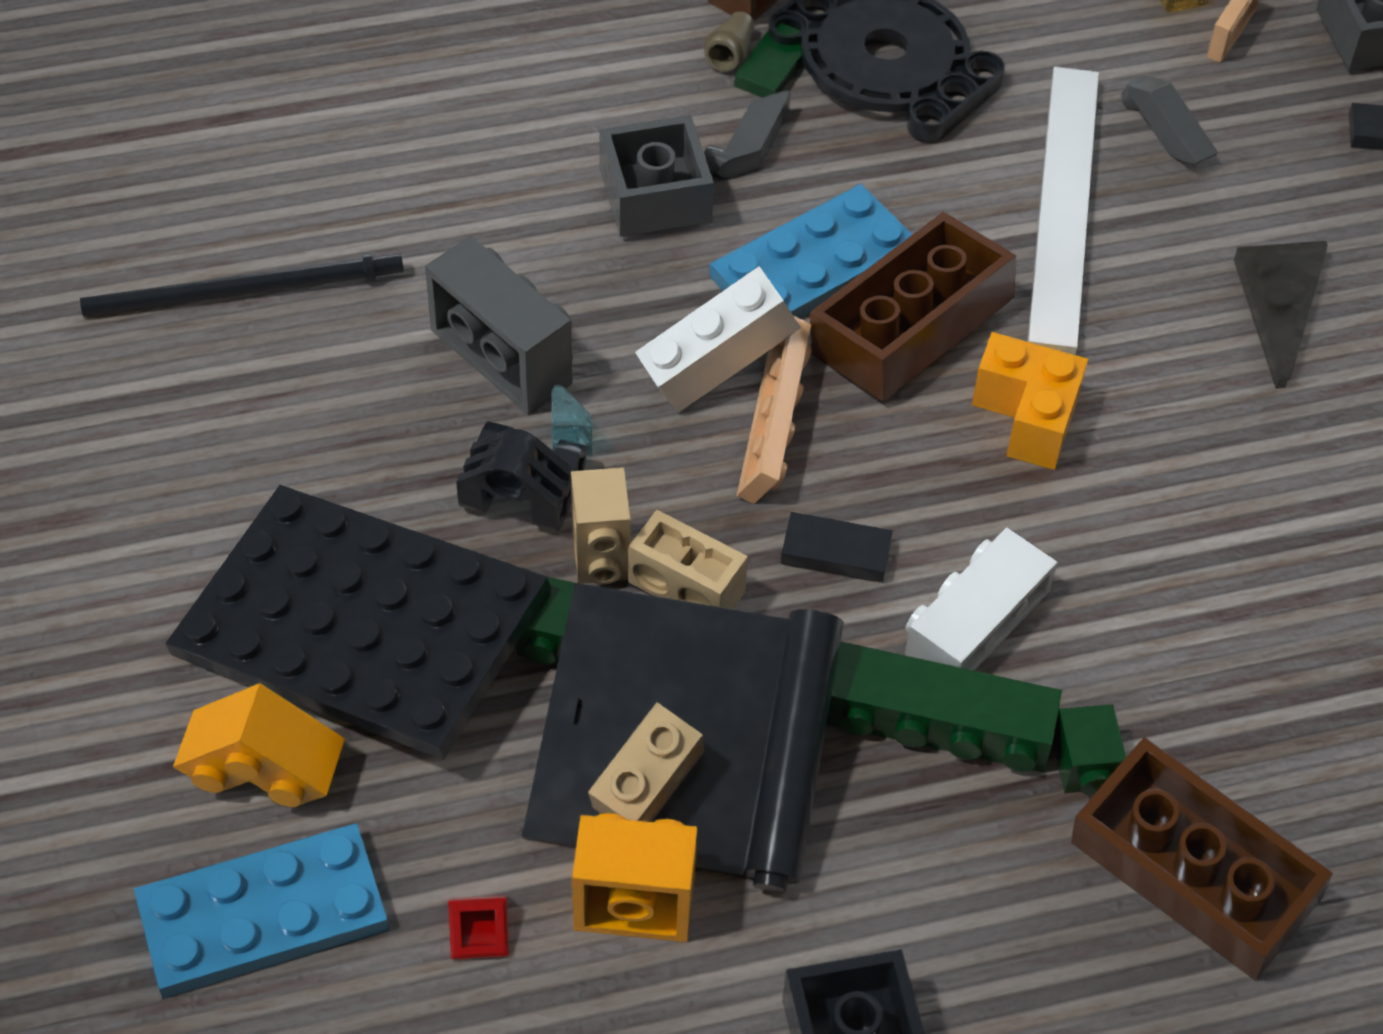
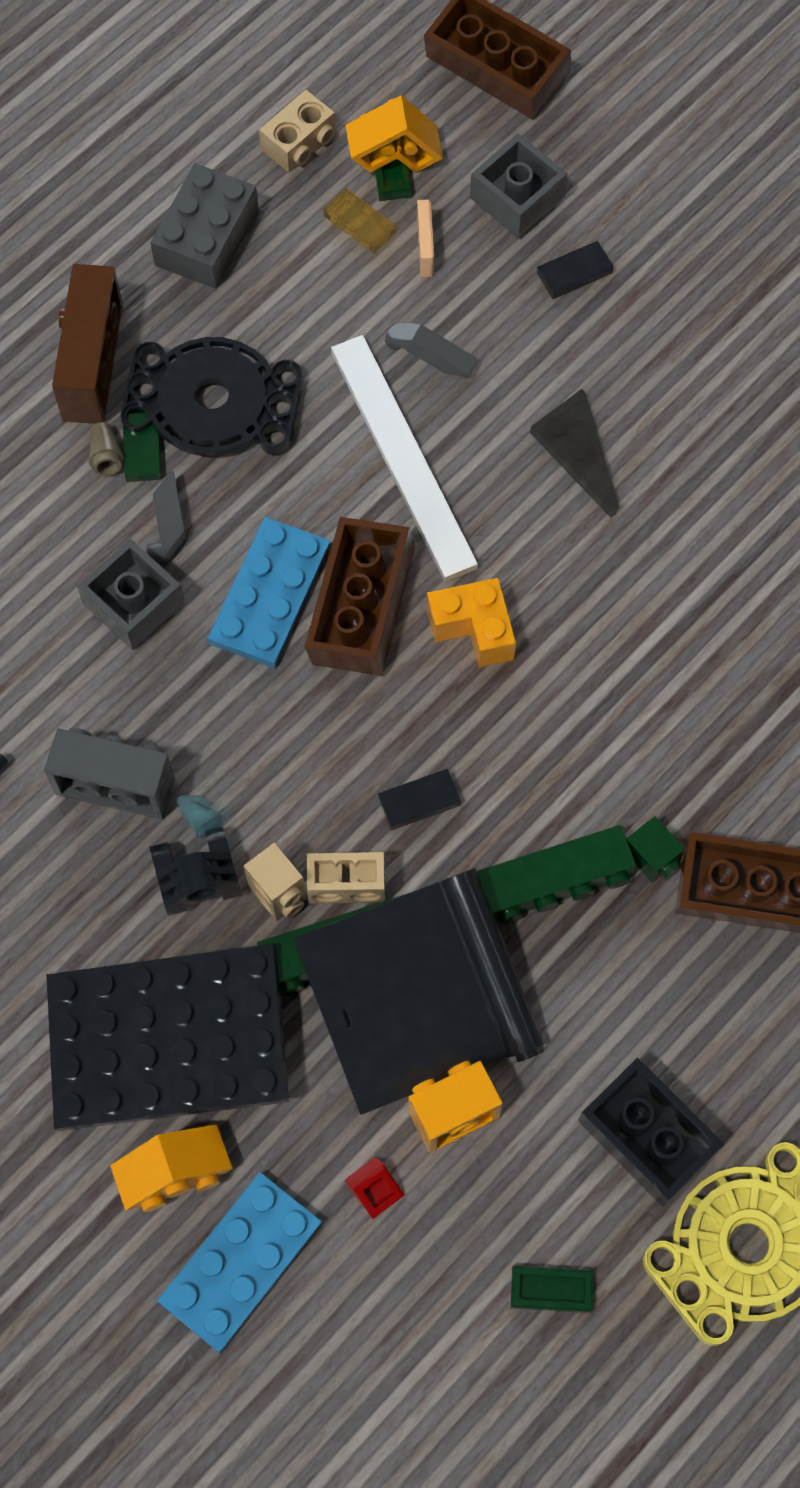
camera: 30 degrees left, 15 degrees up
(648, 767) = (417, 1035): tan brick -> none
(718, 339) = (259, 702): white brick -> none
(772, 423) = (321, 726): light nougat plate -> none
(981, 603) = (532, 791): white brick -> none

